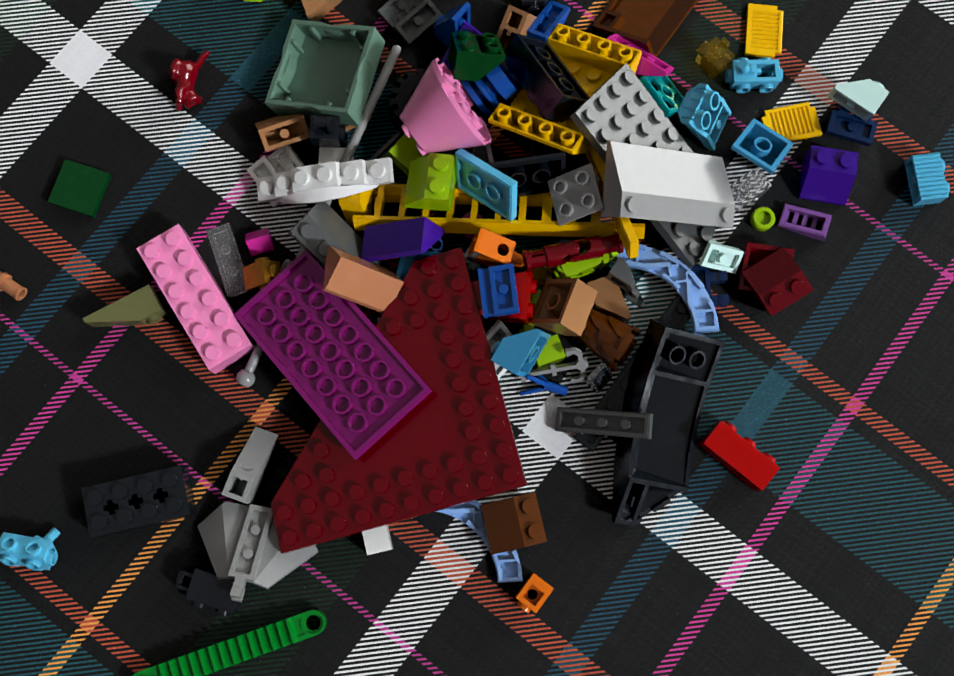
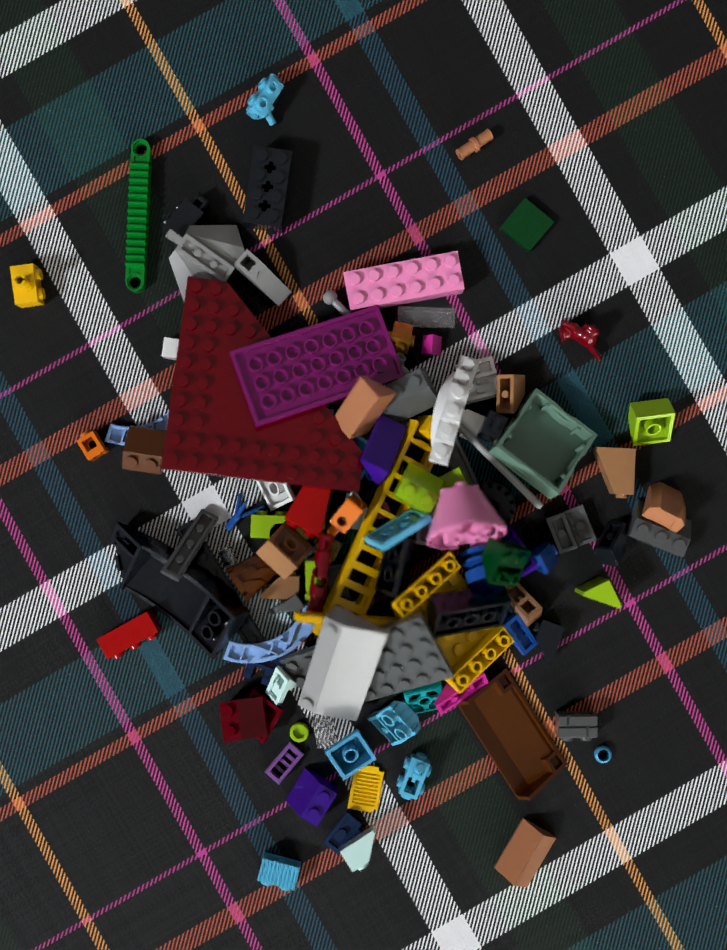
camera: 115 degrees right, 10 degrees up
(135, 309) = (413, 235): olive slope -> none
(498, 290) = (312, 505): blue plate -> none
(520, 351) = (262, 502): dark azure slope -> none
(576, 194) = (362, 593): light grey hinge -> none
(580, 364) = (240, 547): light grey piece -> none
(714, 56) = (441, 751): clear yellow brick -> none
(763, 31) = (449, 801): yellow window -> none

